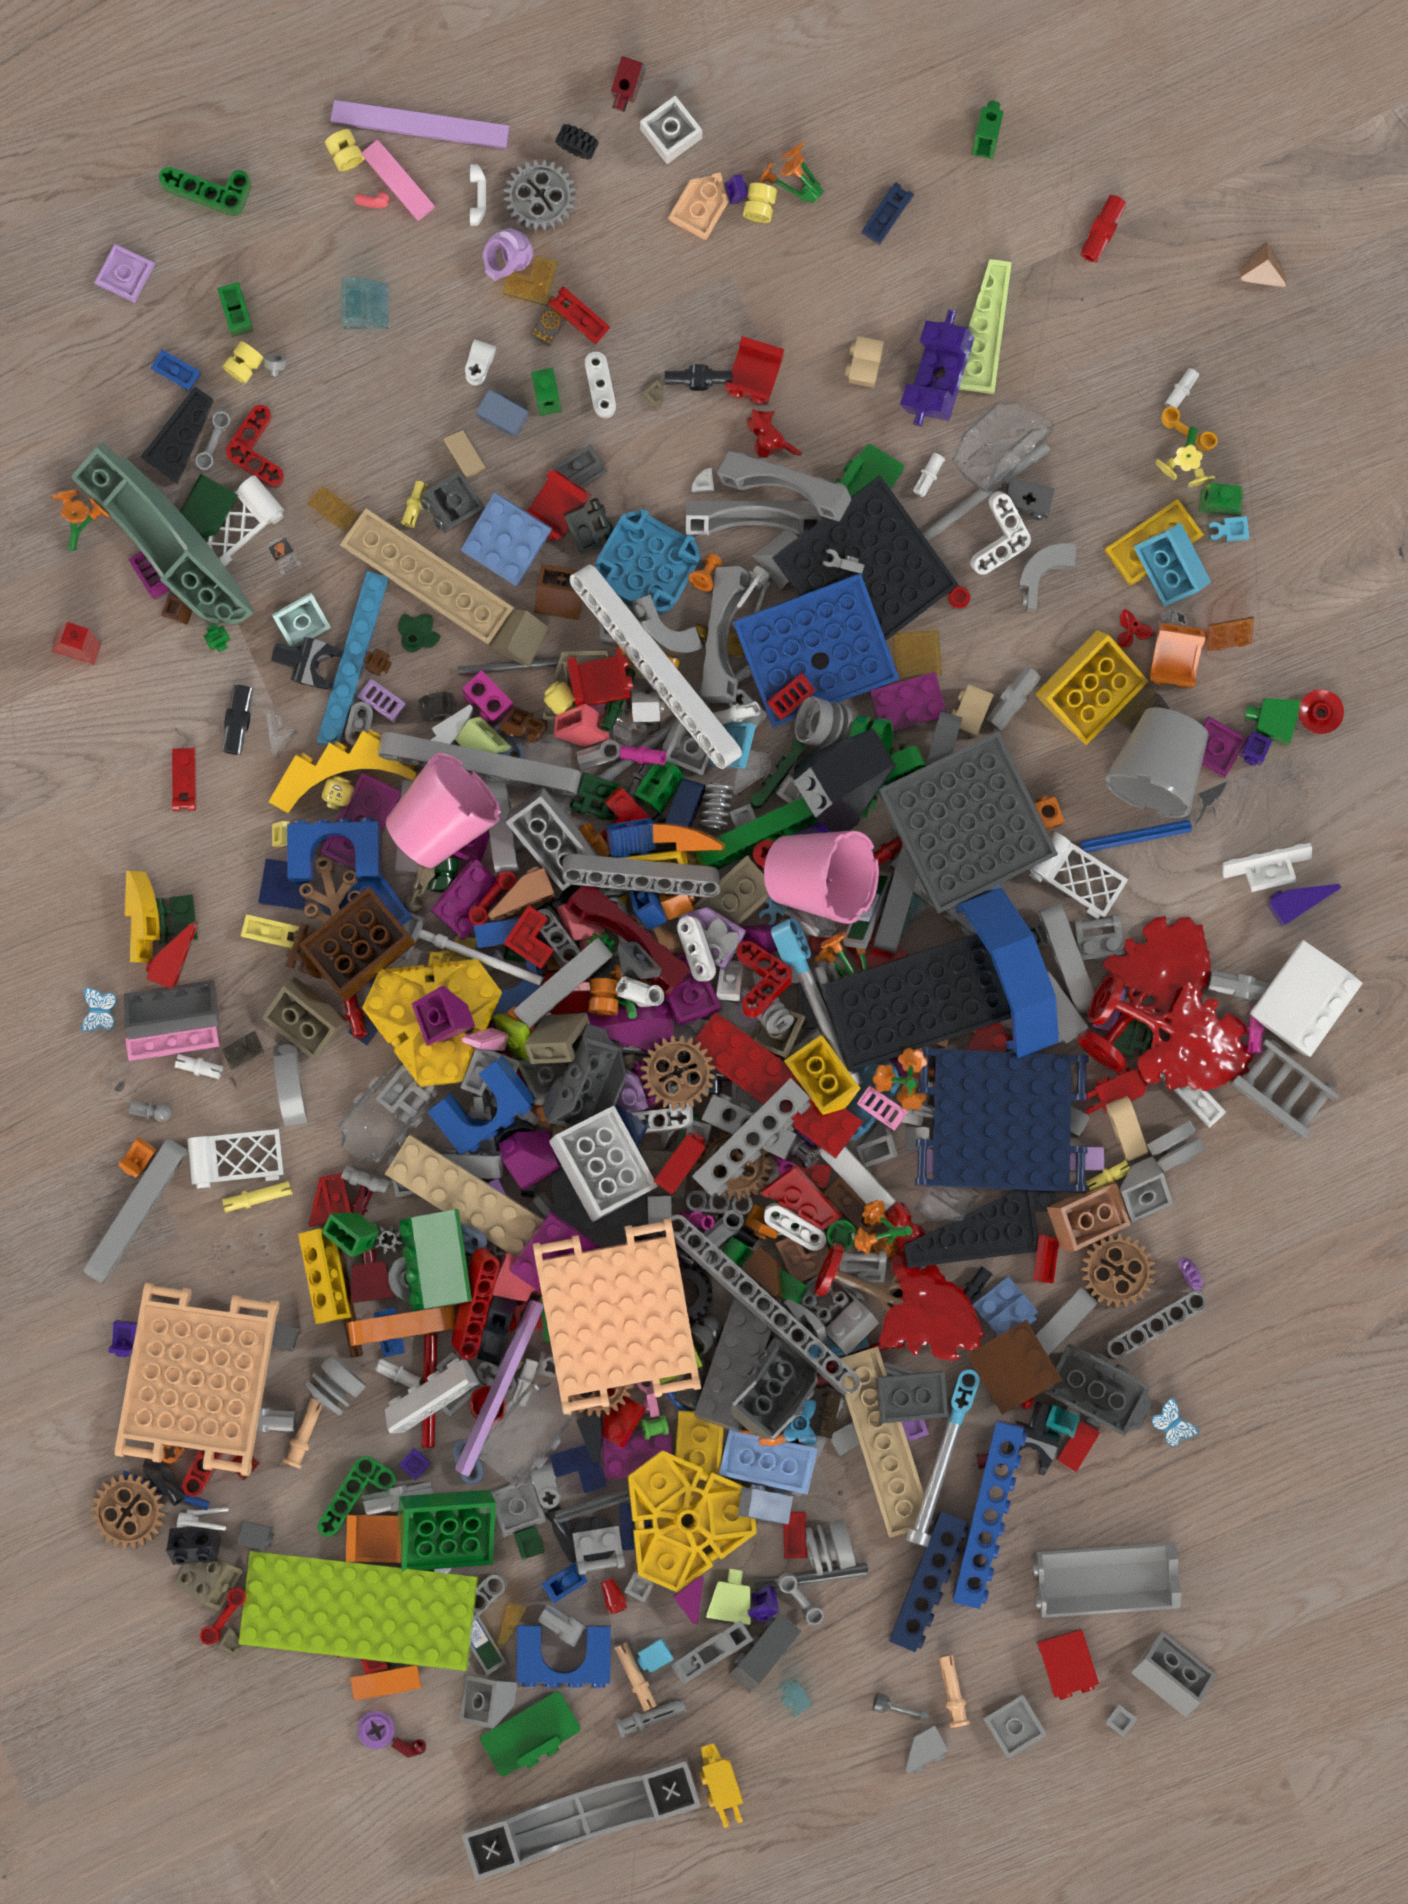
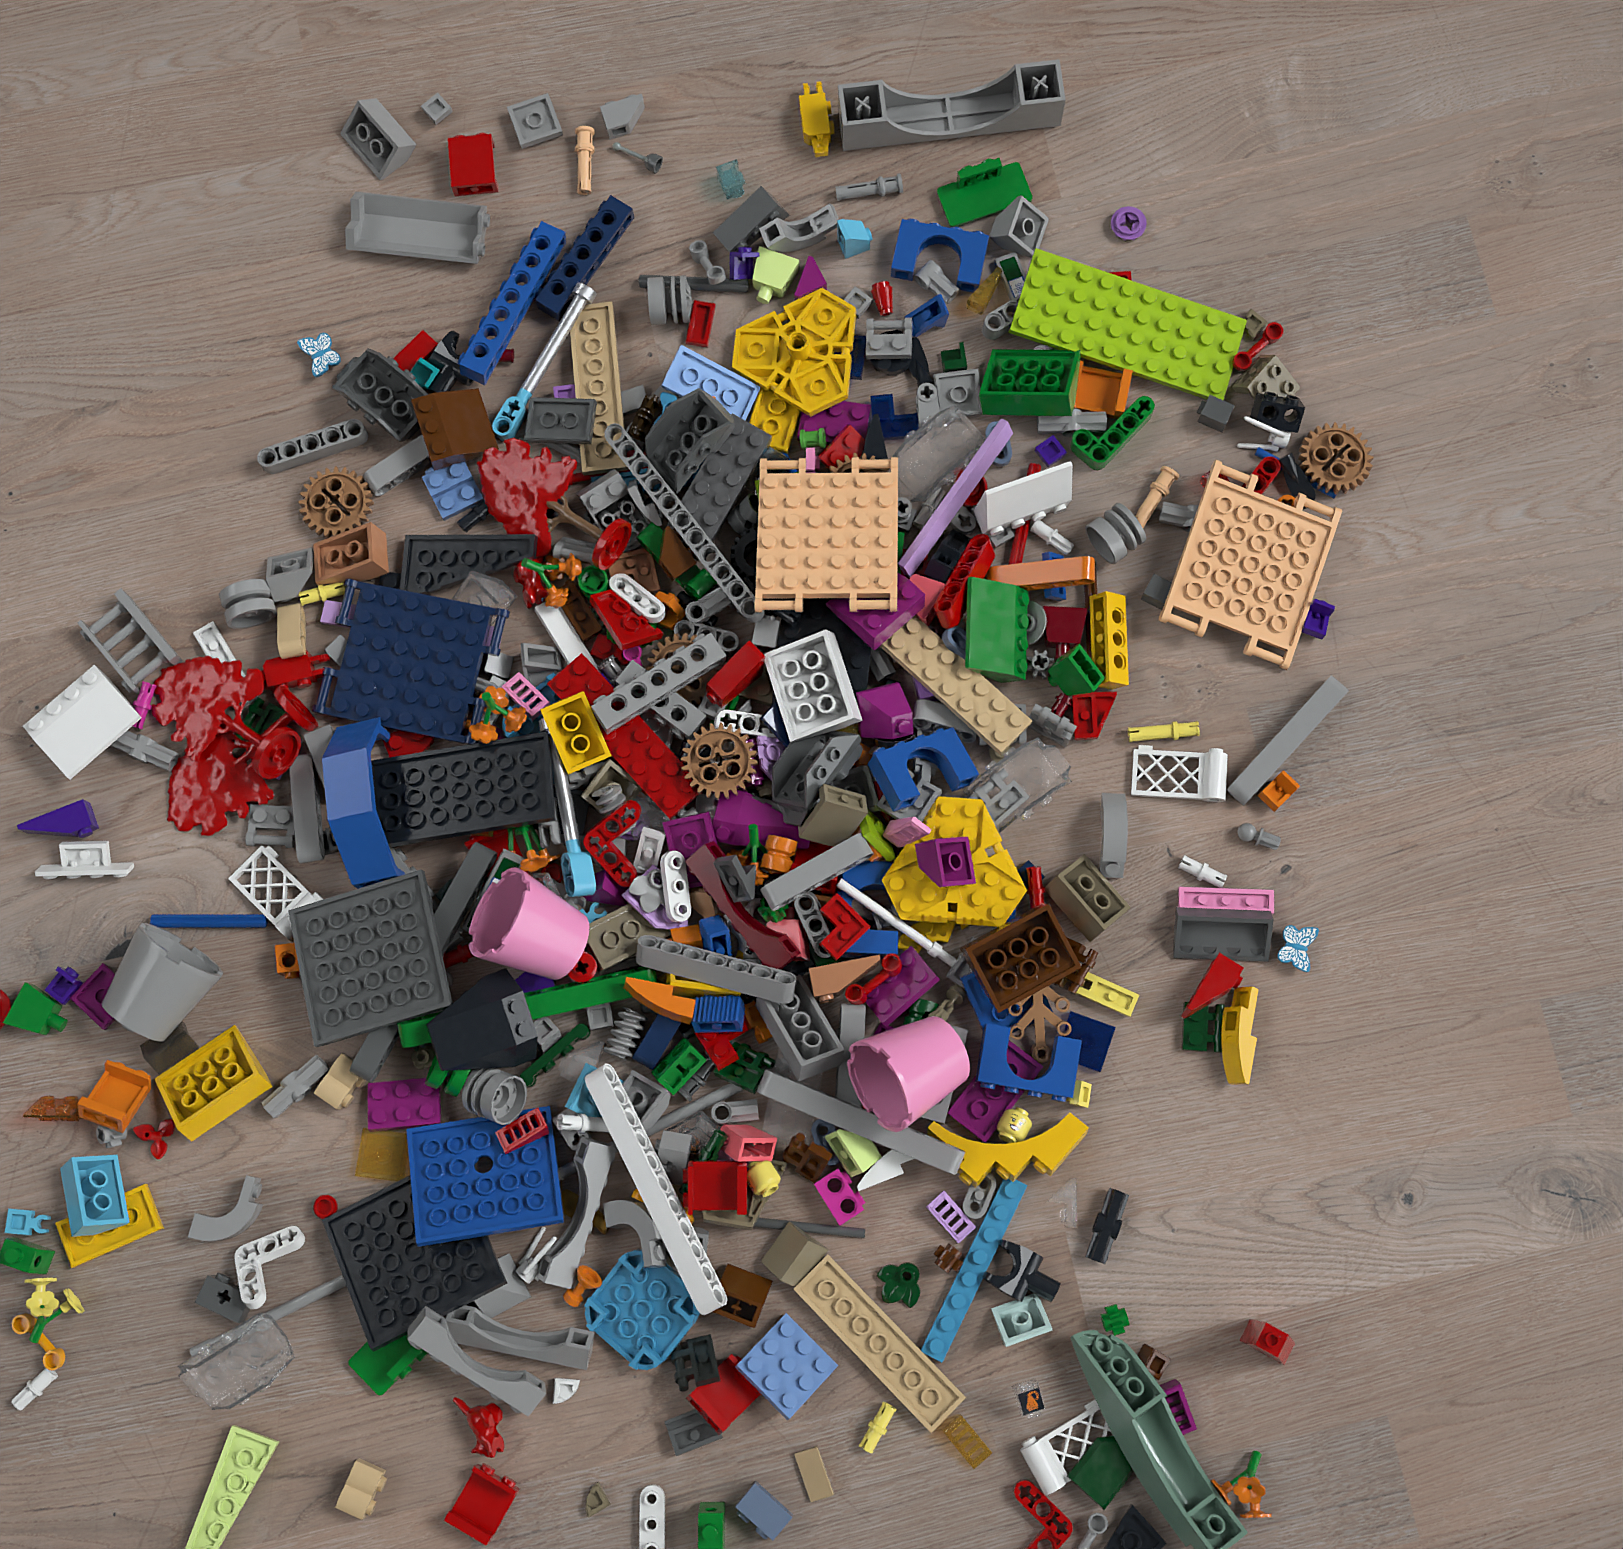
camera: 165 degrees left, 5 degrees down
(183, 778) = (1172, 1174): red plate -> none
(243, 1050) = (1154, 876): clear smoke slope -> none
(386, 1682) = (1112, 259): orange slope -> none
(409, 1749) = (1098, 201): dark red arm -> none
(437, 706) = (893, 1196): clear smoke gear -> none
(451, 502) = (837, 1420): dark grey plate -> none
(592, 1505) = (886, 380): dark grey axle -> none
(635, 1676) = (873, 216): light nougat pin -> none
(639, 992) = (742, 848): white piece -> none
(643, 755) = (688, 1099): dark pink pin -> none
(698, 377) = (544, 1509): black pin -> none
(698, 1219) = (732, 623): dark pink pin -> none
(765, 1505) = (723, 348): brick -> none
(849, 563) = (426, 1258): light grey plate -> none
(928, 474) = (324, 1347): white axle -> none
(947, 349) = (270, 1485): dark purple brick -> none
(1046, 1259) = (402, 526): red tile -> none
(1190, 1273) = (266, 485): medium lavender gear -> none

